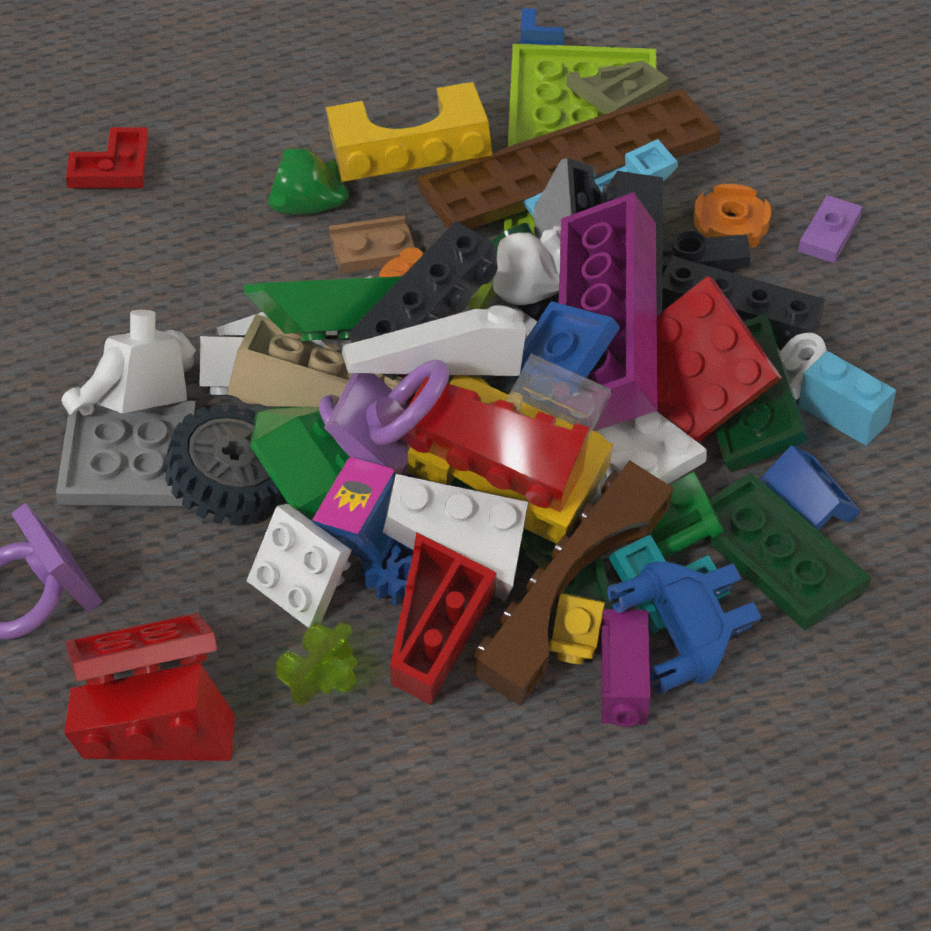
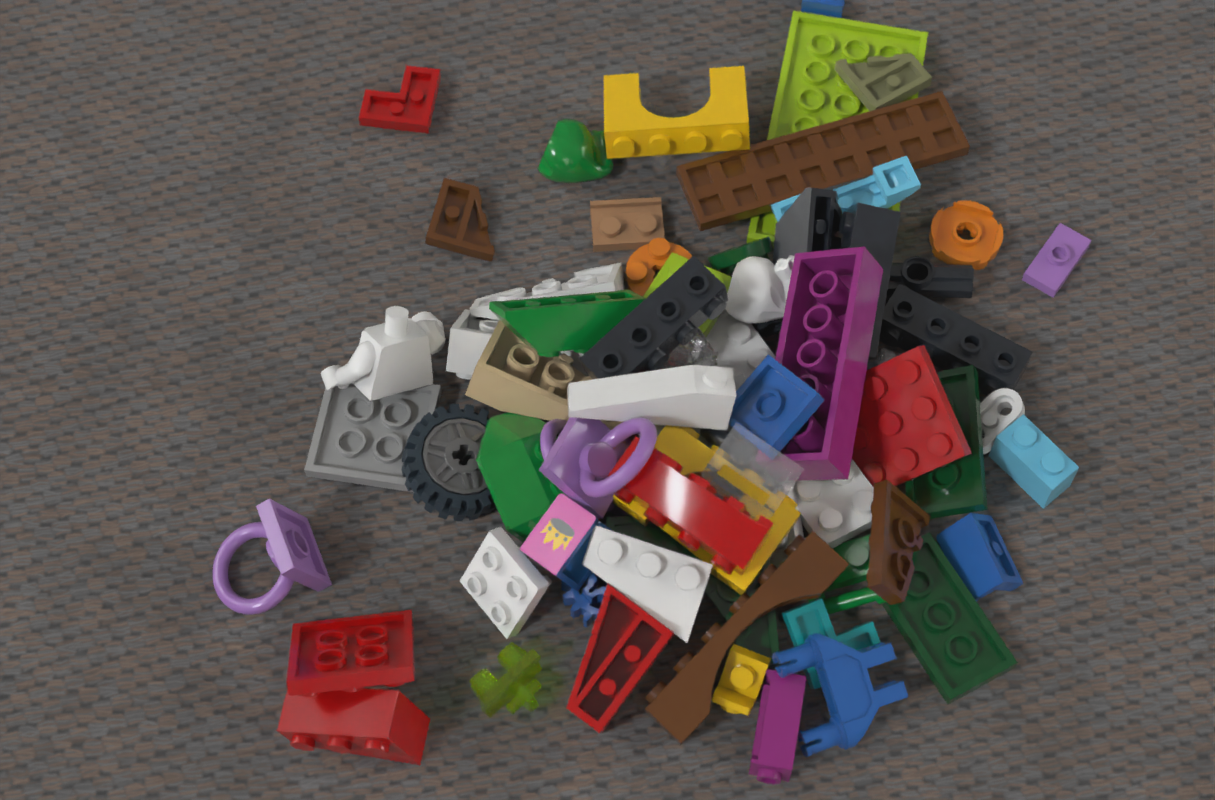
camera: 10 degrees right, 15 degrees up
(191, 258) = (459, 221): none -> reddish brown wing
(716, 470) = (893, 541): none -> reddish brown wing

